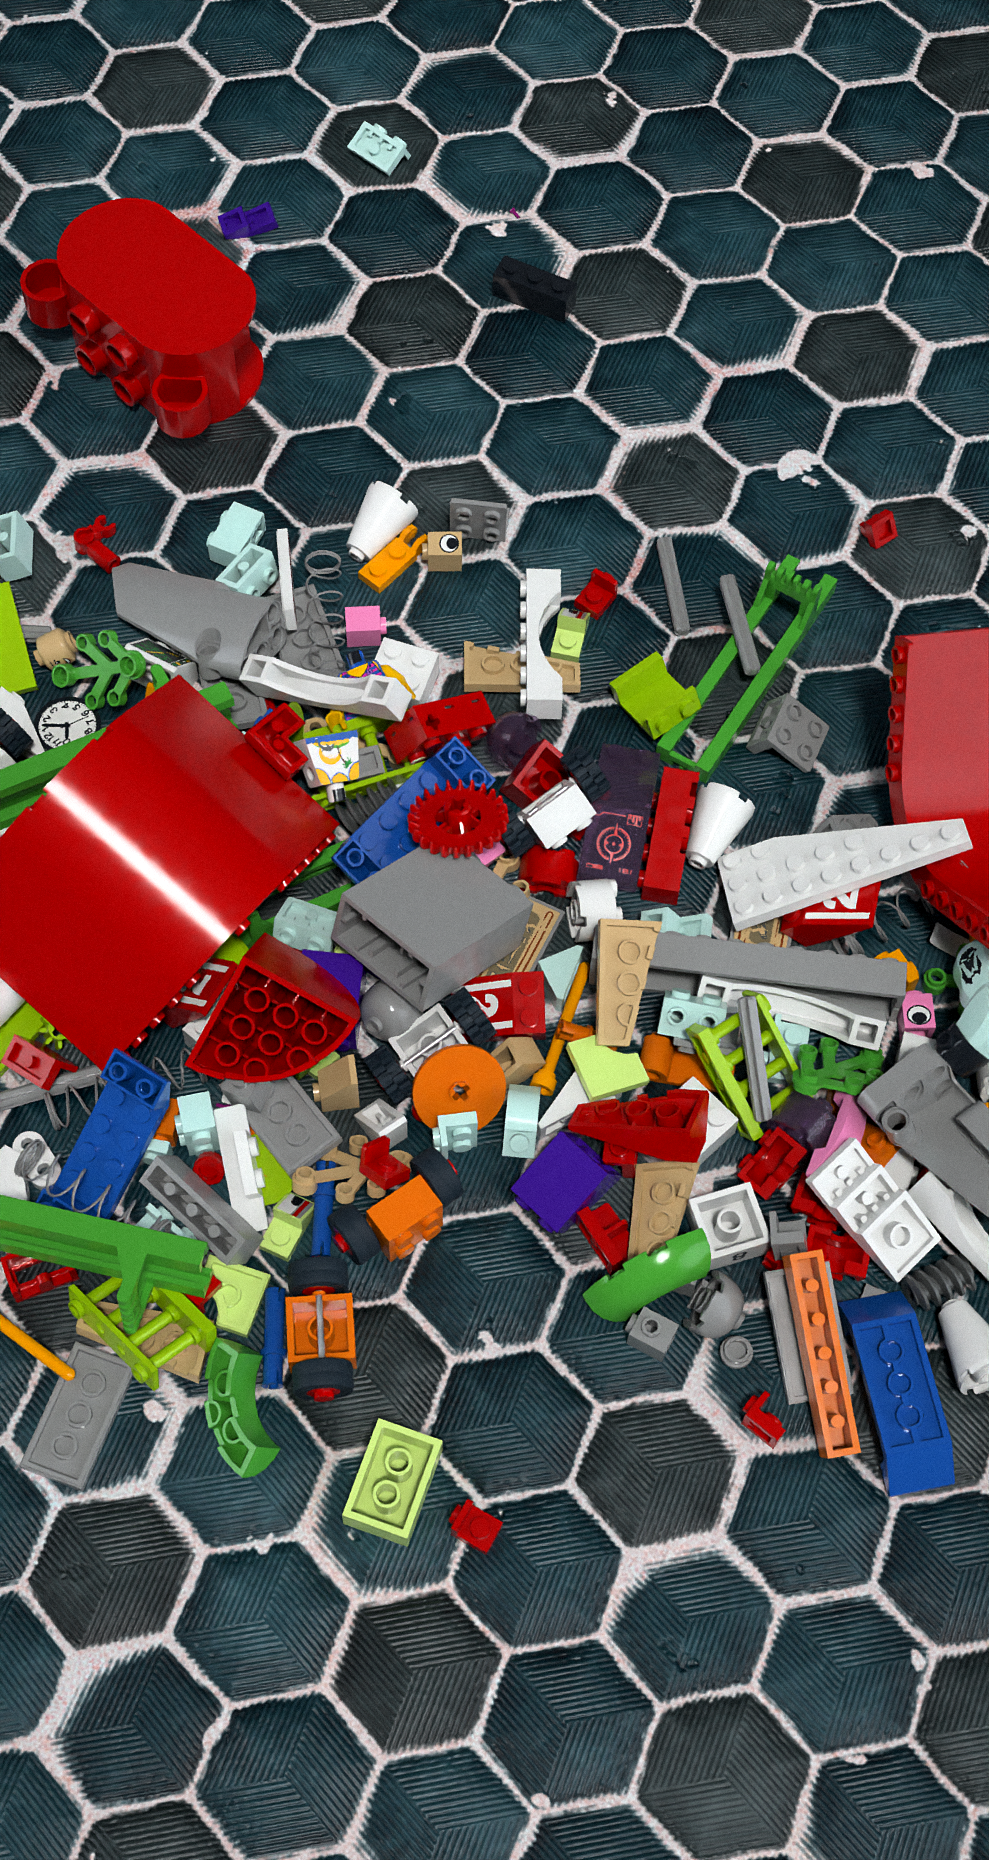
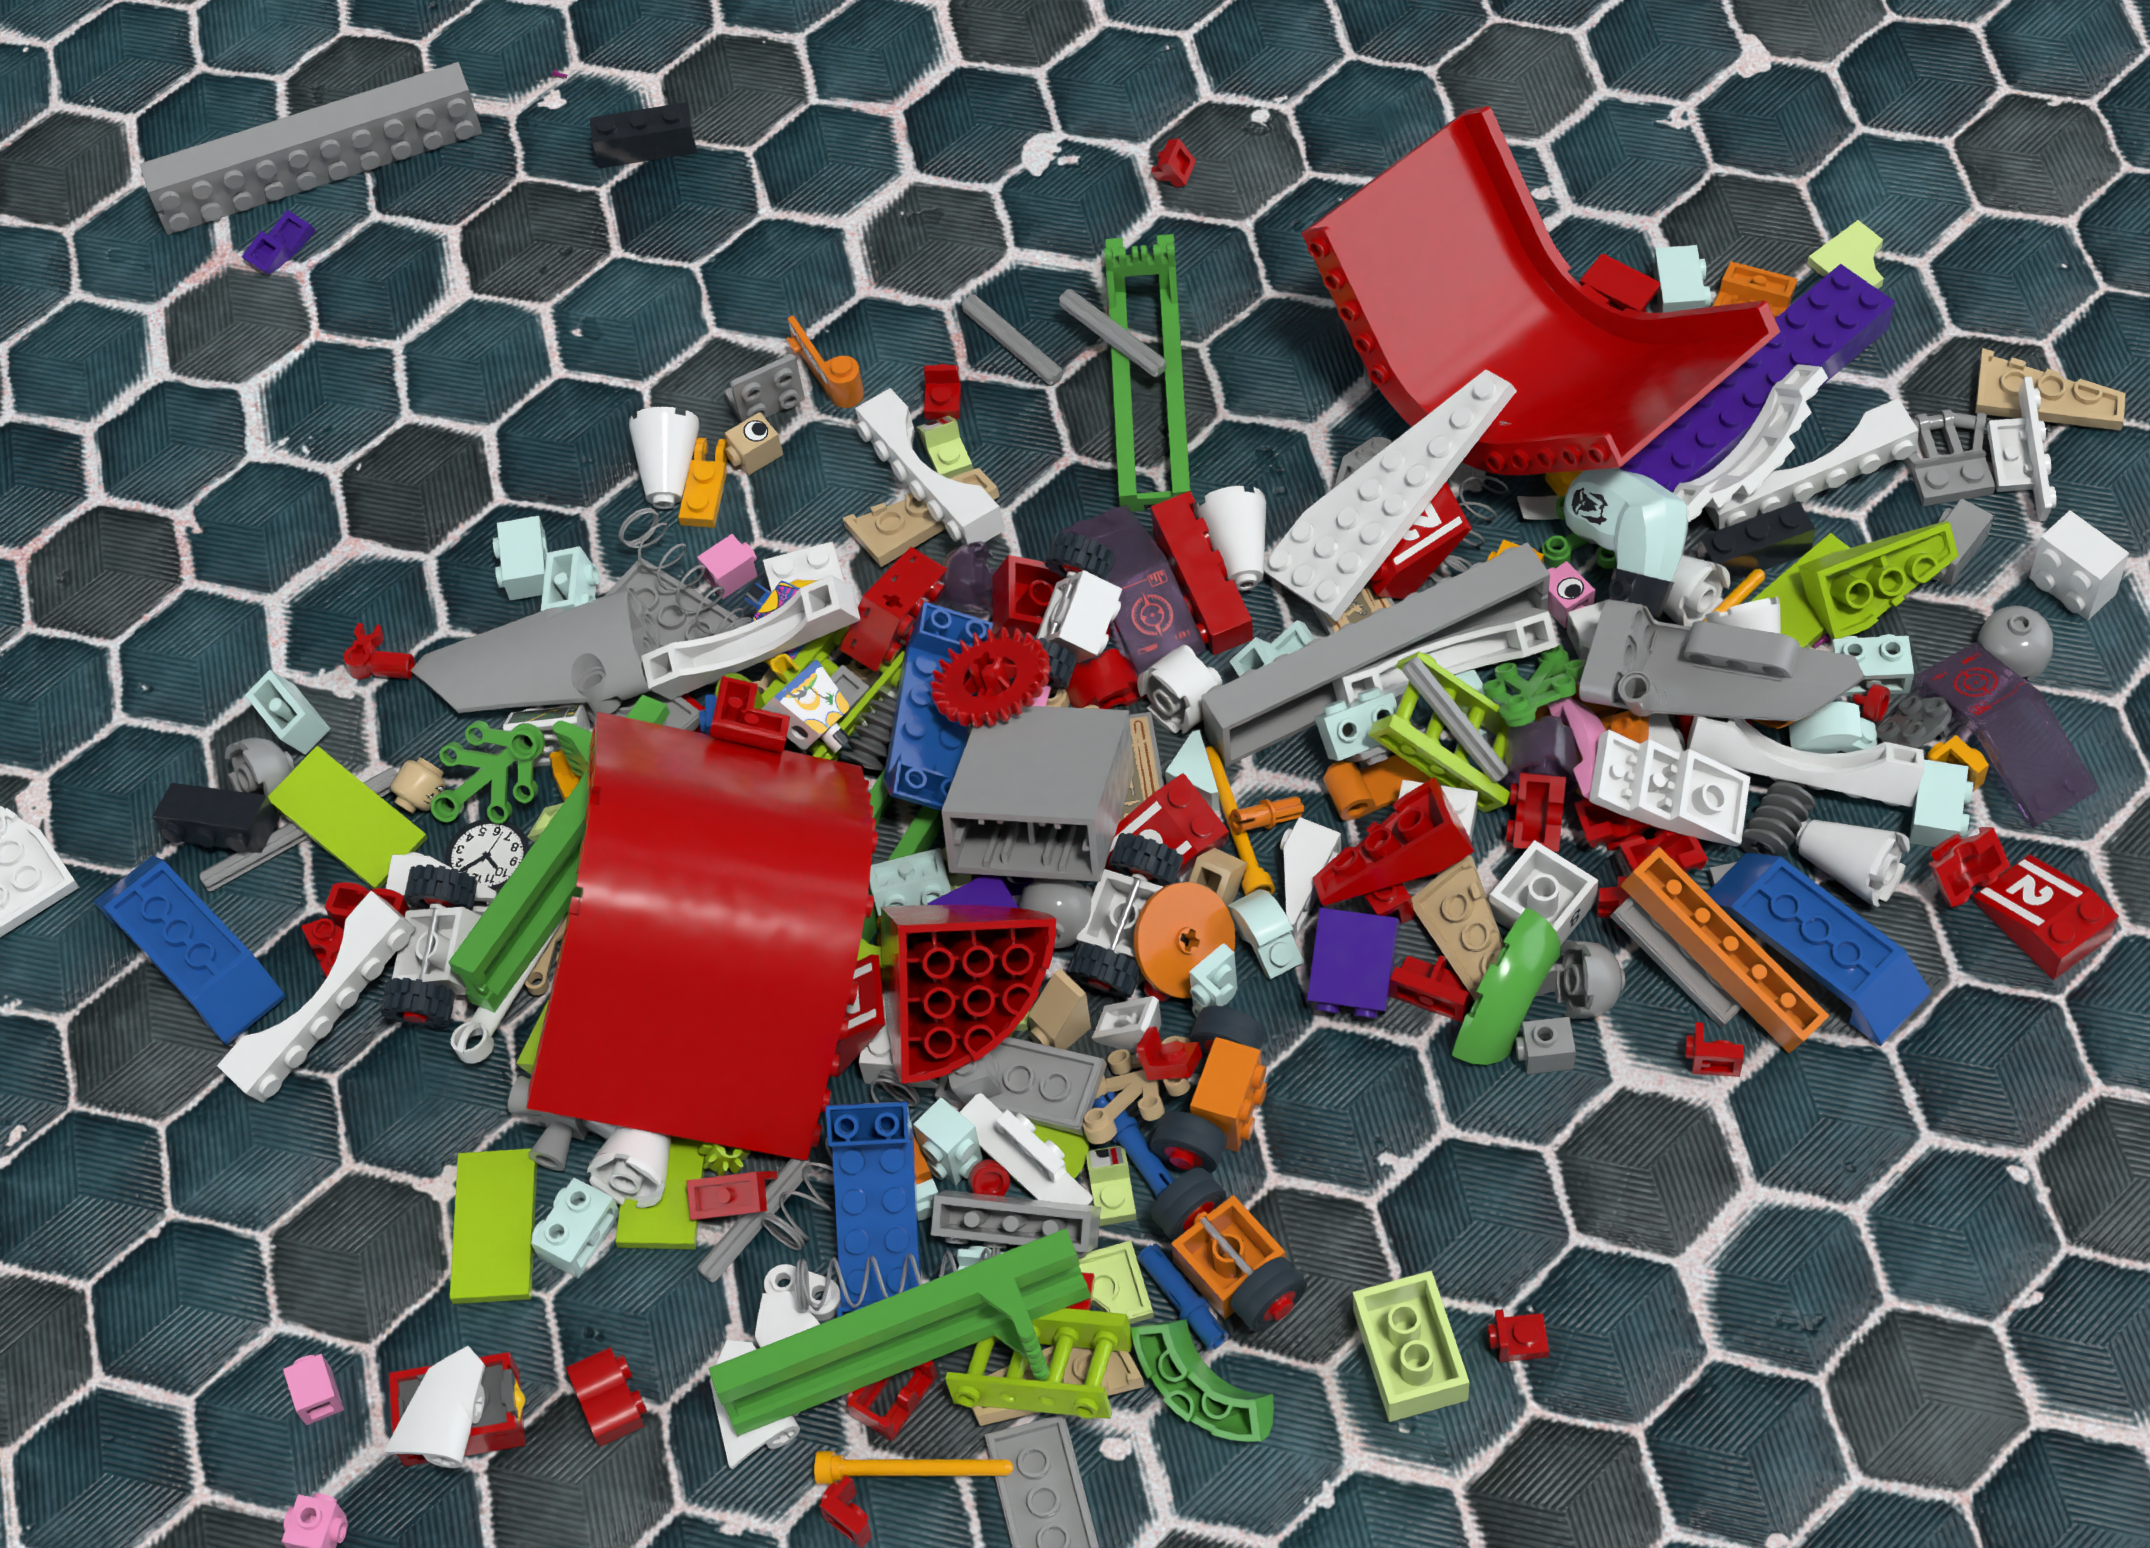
camera: 25 degrees left, 5 degrees down
(152, 313) = (262, 385): red brick -> none
(286, 579) = (611, 564): white tile -> none
(312, 168) = (311, 148): none -> light grey piece
(378, 148) = (354, 80): light aqua bracket -> none
(535, 537) = (838, 376): none -> orange door
(605, 1070) = (1312, 829): yellowish green tile -> none
(622, 969) = (1260, 715): tan wing -> none
(654, 696) = (1080, 454): lime panel -> none
(736, 1352) = (1638, 1010): light grey plate -> none
(787, 1236) = (1609, 867): light grey panel -> none
(790, 731) = (1235, 402): light grey bracket -> none

